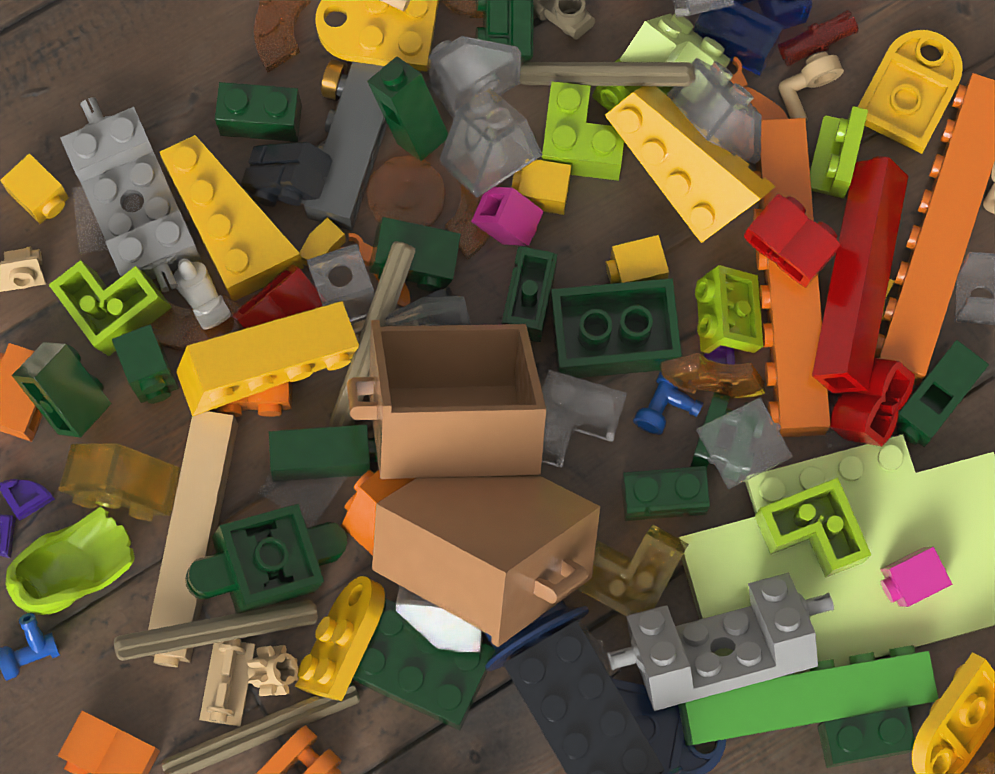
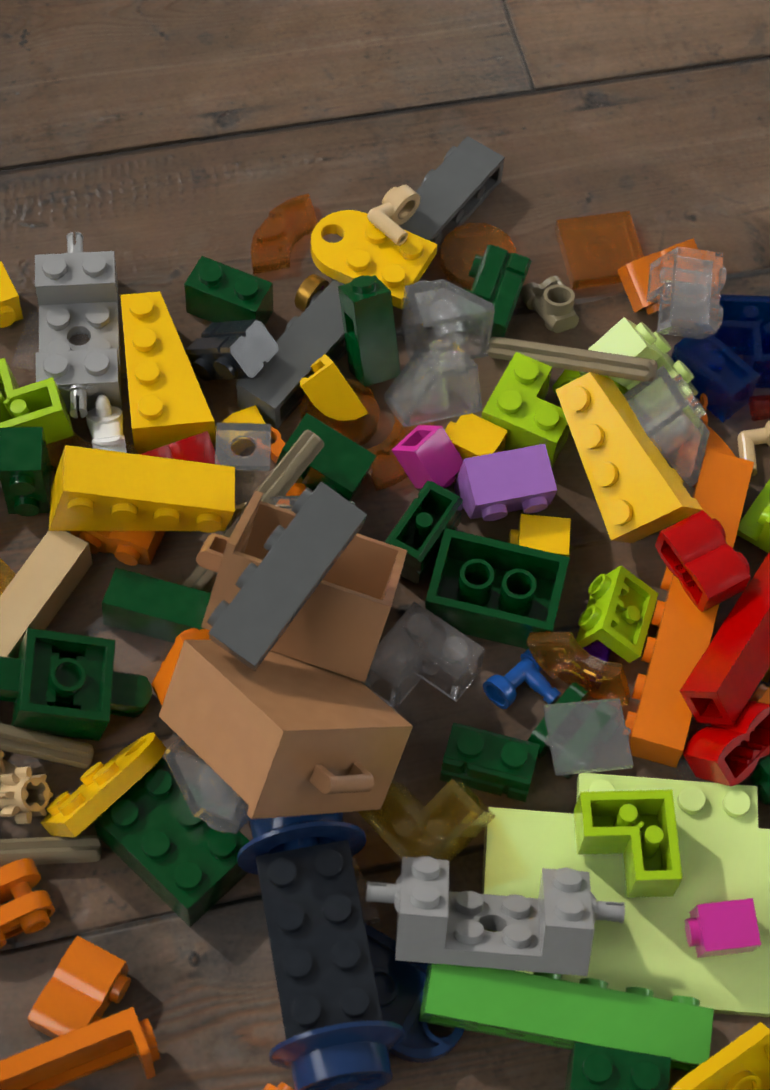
camera: 15 degrees right, 15 degrees down
(394, 182) = (331, 392): none -> yellow brick
(450, 422) = (286, 576): none -> dark grey brick
(590, 223) = (506, 483): none -> medium lavender slope

